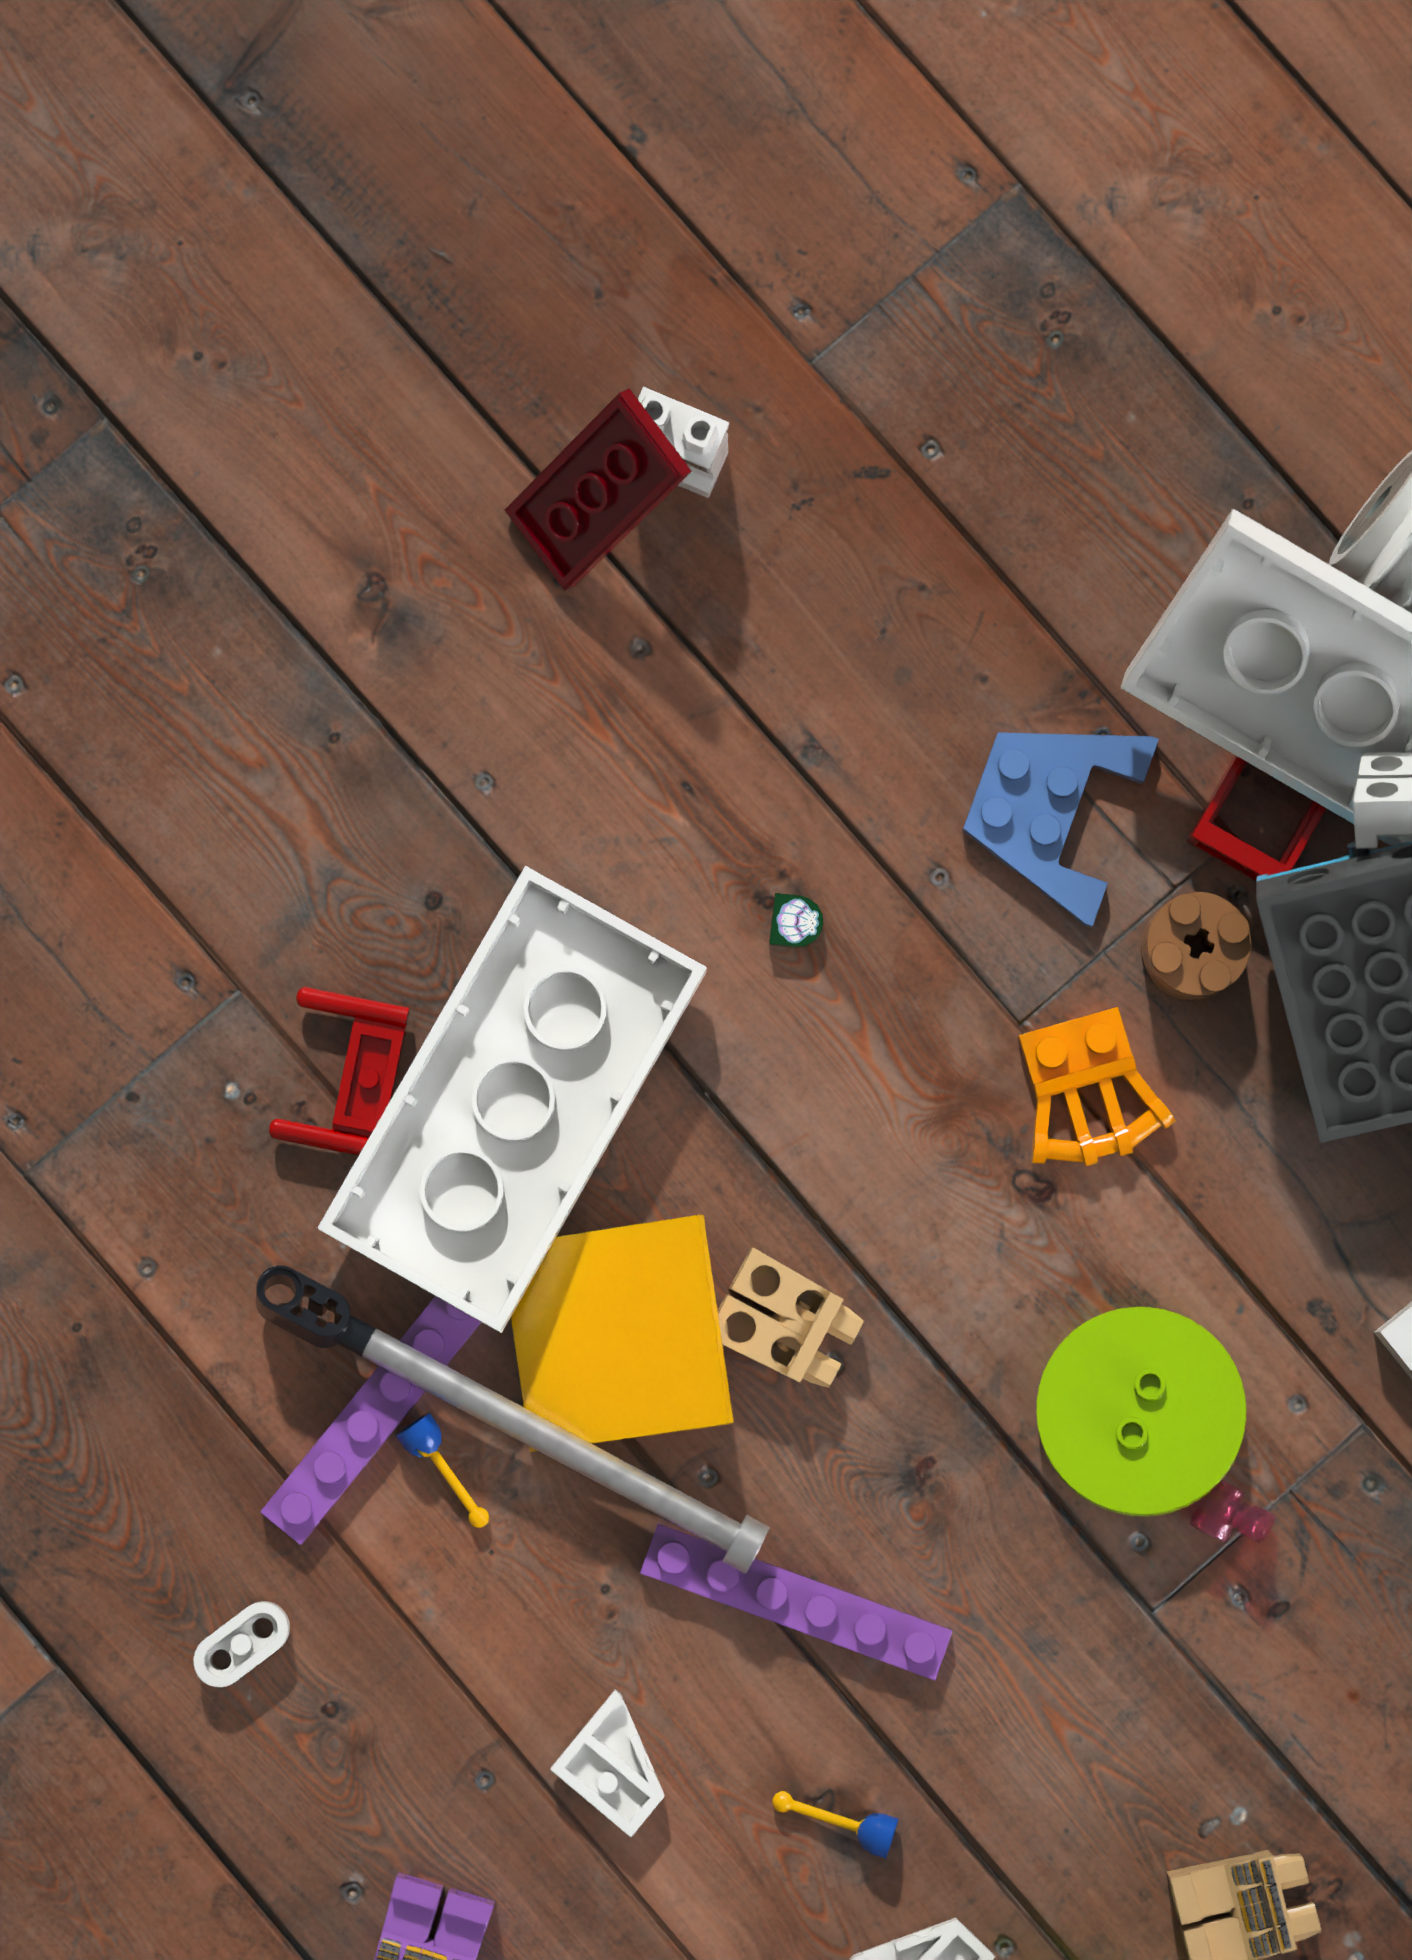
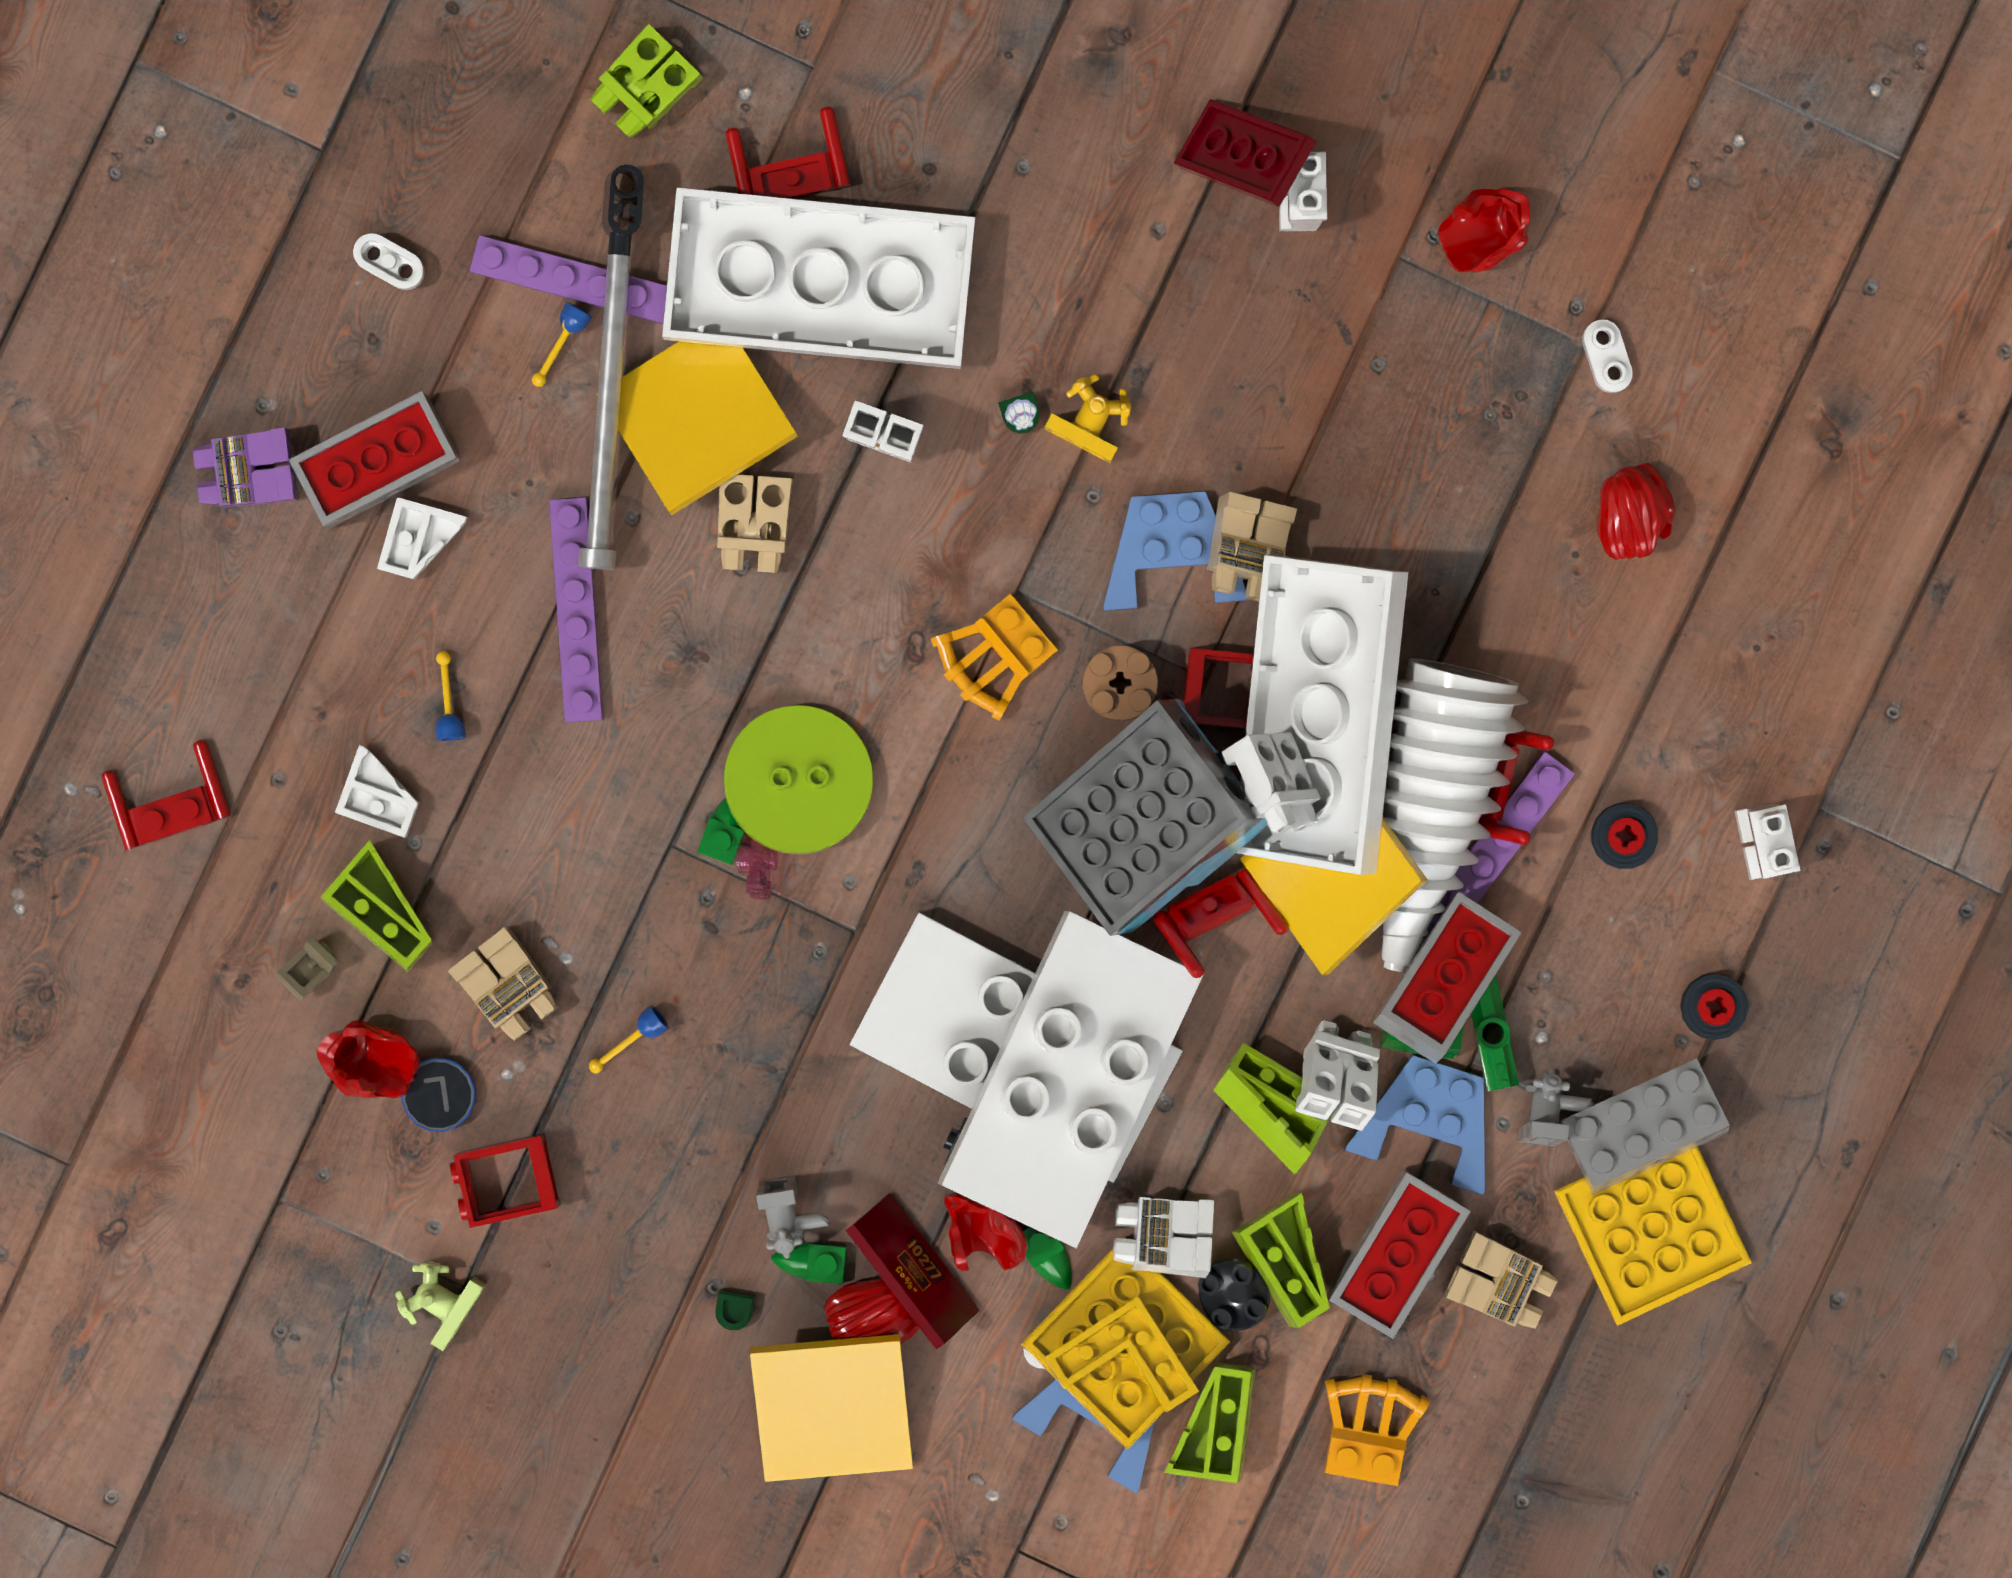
camera: 75 degrees right, 5 degrees up
(174, 1222) = (633, 84): none -> lime hips
(490, 1777) = (375, 460): none -> red brick
(750, 1100) = (882, 432): none -> white hips
(823, 239) = (1485, 229): none -> red hair
(843, 835) = (1090, 419): none -> yellow piece
(1047, 165) = (1605, 356): none -> white plate
(1083, 709) = (1242, 537): none -> tan hips
(1167, 1542) = (721, 835): none -> green plate
(1260, 211) = (1634, 512): none -> red hair
(1374, 1743) = (650, 1024): none -> hinge

